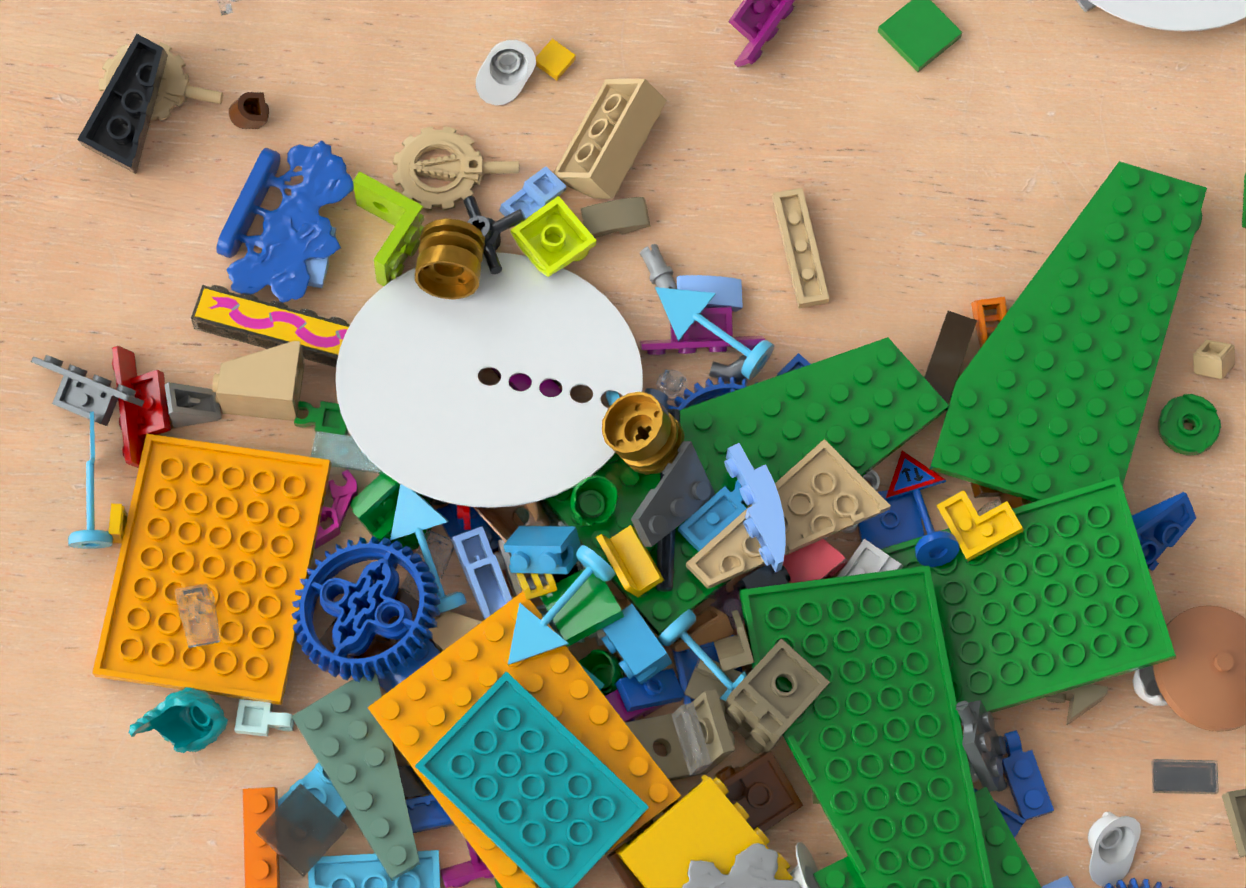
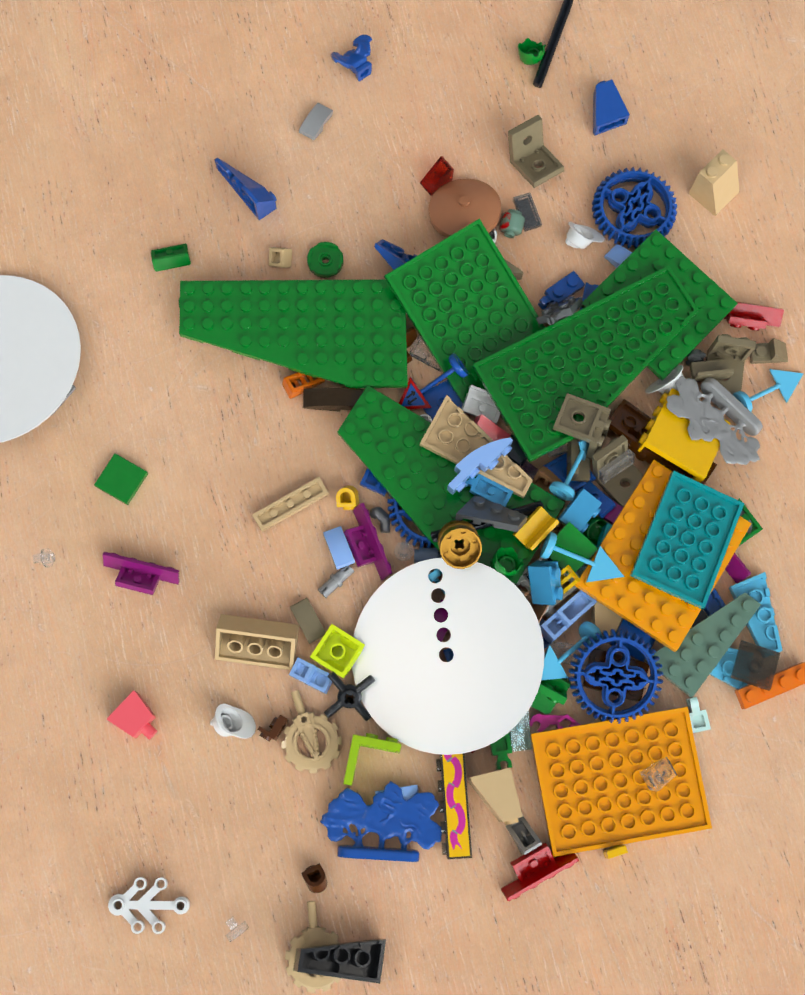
camera: 110 degrees left, 5 degrees up
(84, 394) = (544, 906): bracket -> none
(90, 538) = (632, 863): medium azure piece -> none
(185, 719) = (719, 758): teal hair -> none
(449, 259) = (377, 707): pearl gold wheel -> none
(474, 123) = (277, 726): none -> reddish brown bracket
(554, 59) = (212, 695): yellow tile -> none
(686, 306) = (356, 555): medium azure piece -> none
(734, 650) = (561, 456): dark tan panel -> none
(782, 328) = (347, 497): none -> yellow plate
(975, 532) = (441, 345): yellow plate -> none
(1167, 737) = (512, 223): none -> sand green head

